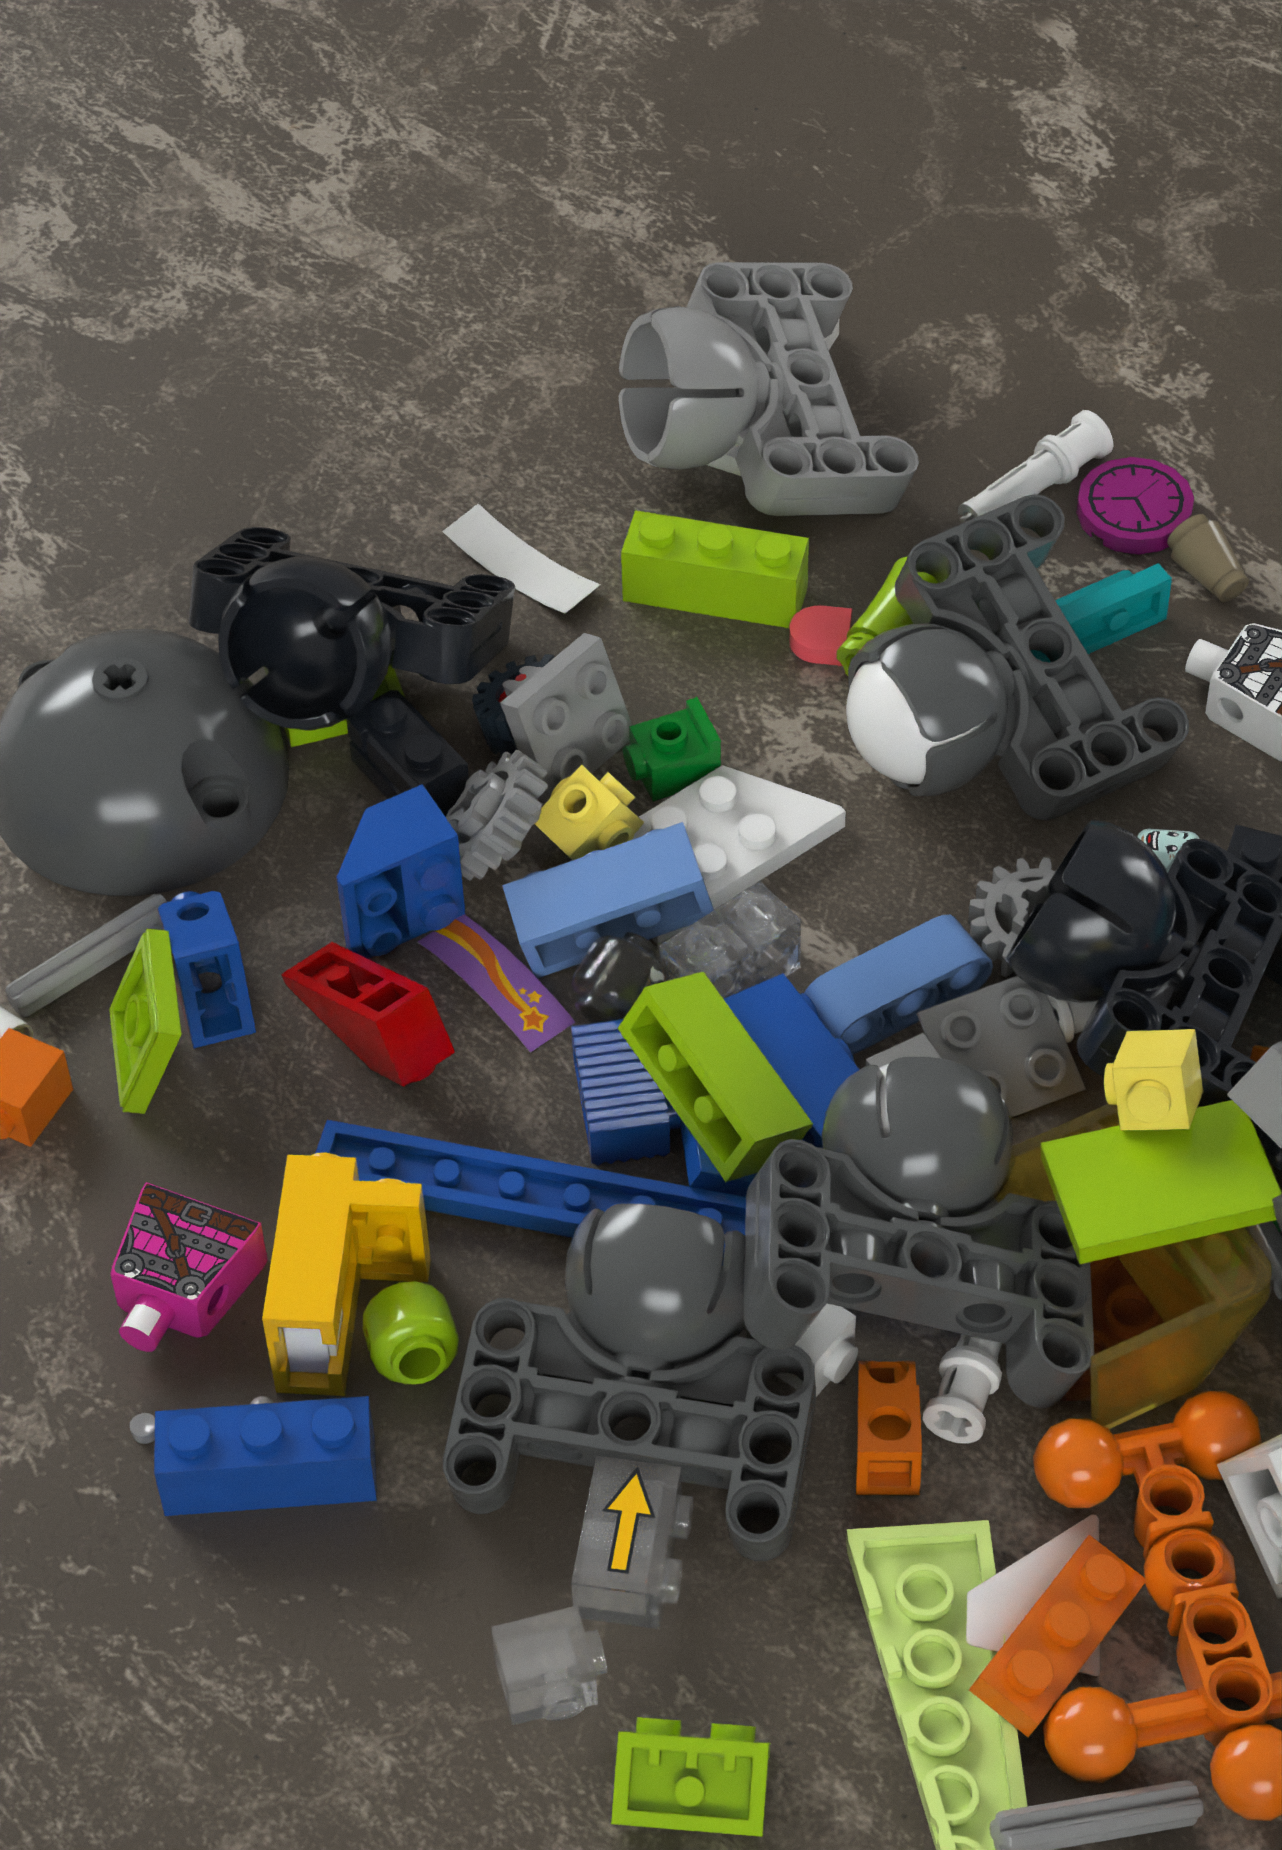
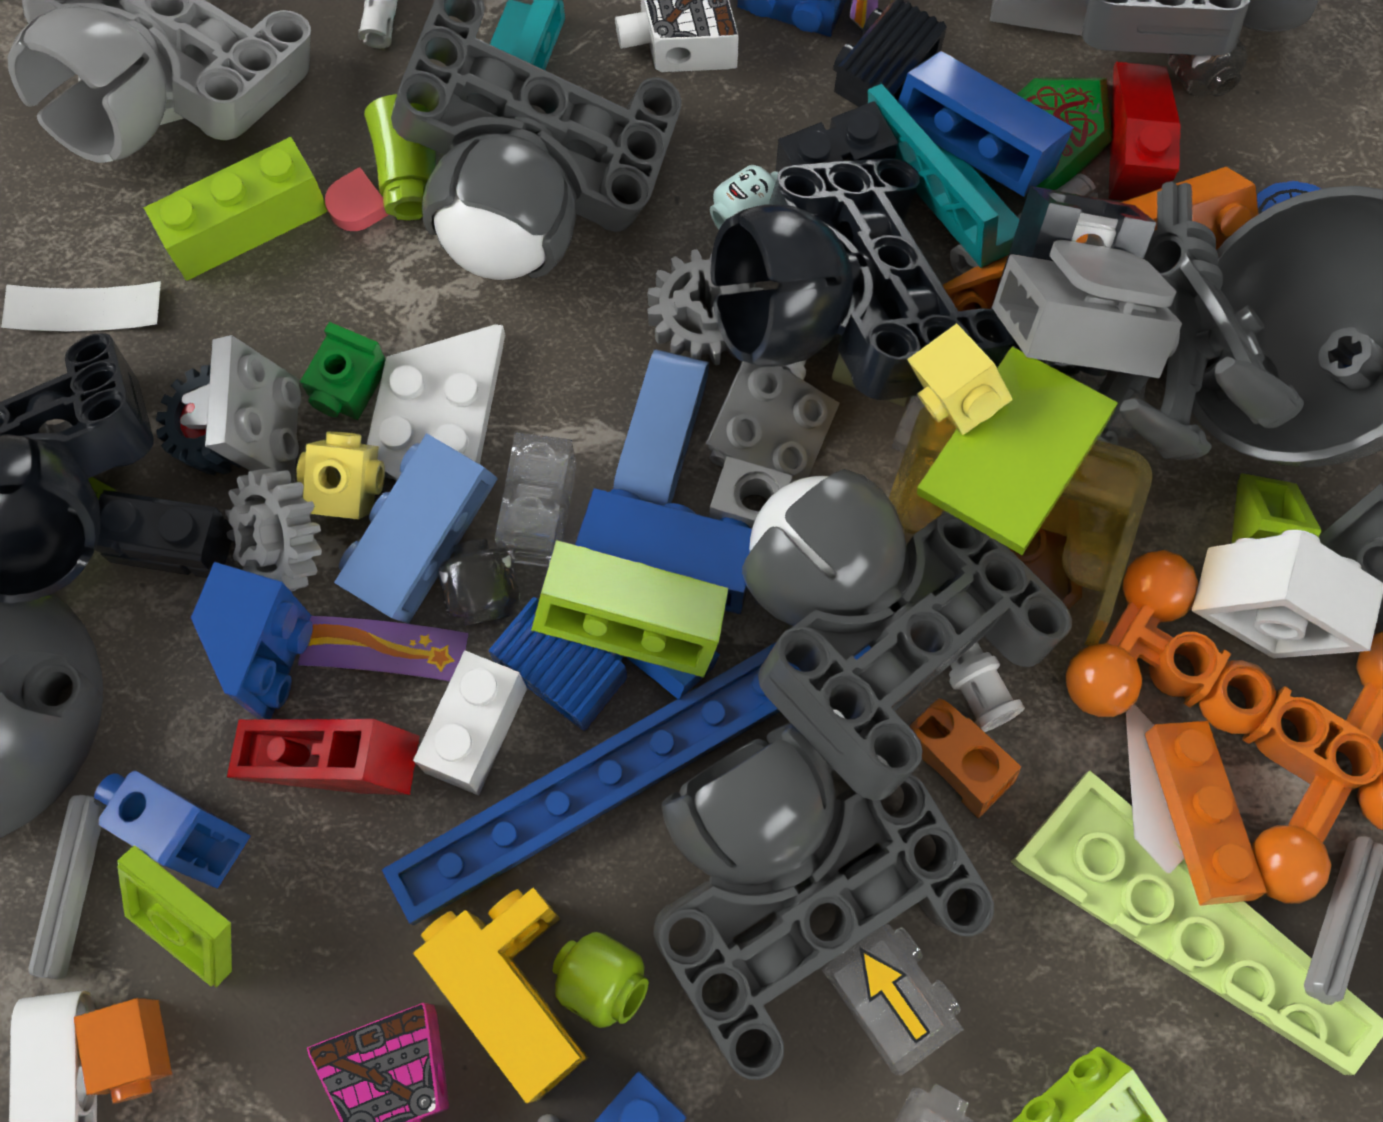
camera: 45 degrees left, 20 degrees up
(504, 1074) = (471, 723): none -> white brick

